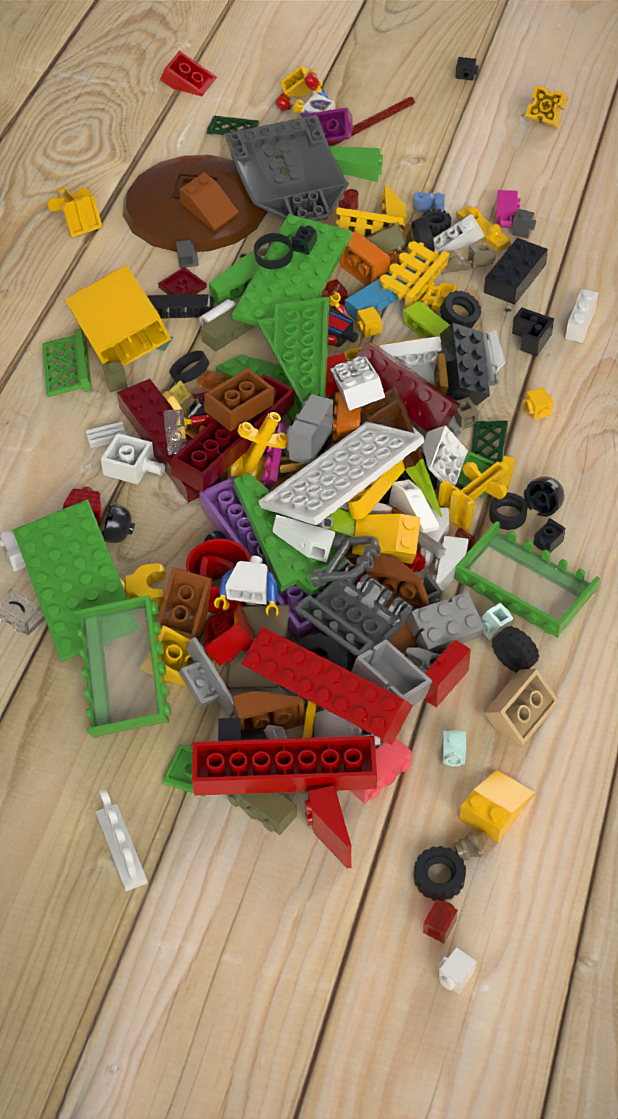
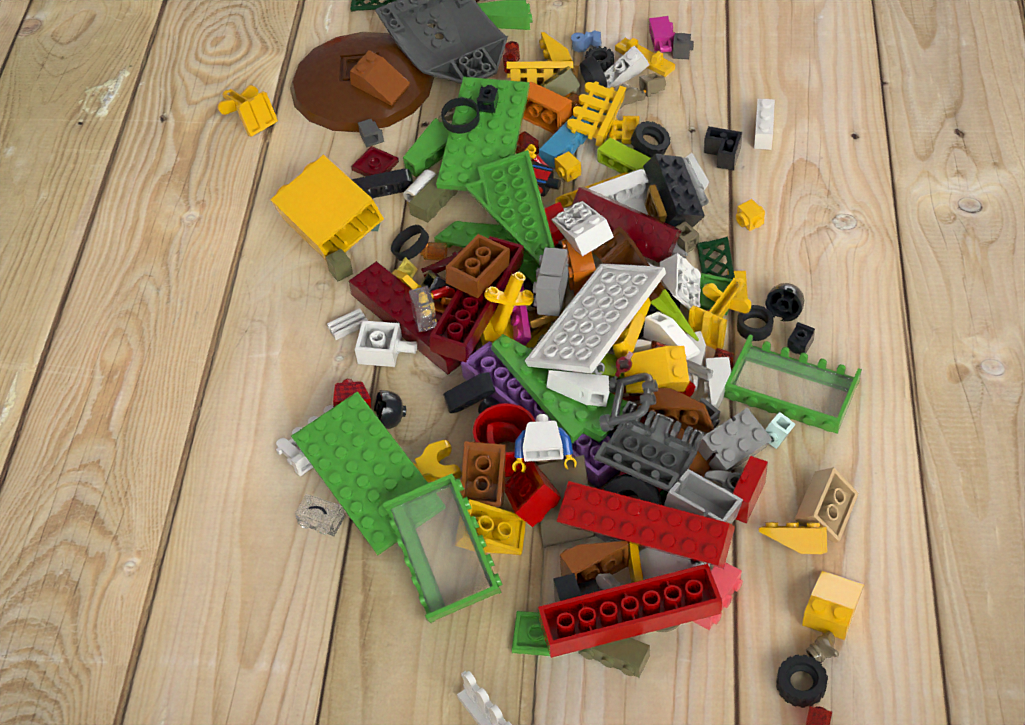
camera: 10 degrees left, 0 degrees up
(82, 371) = (303, 269): bright green fence -> none
(198, 523) = (469, 392): none -> black beam
(204, 680) = (524, 544): light grey bracket -> none
(328, 823) = (687, 657): red slope -> none
(354, 523) = (624, 364): none -> dark red piece
(454, 748) = (778, 558): light aqua brick -> none
(485, 734) = (802, 539): none -> yellow slope
(515, 271) = (689, 92): black brick -> none
(515, 649) = (809, 444): black tyre -> none

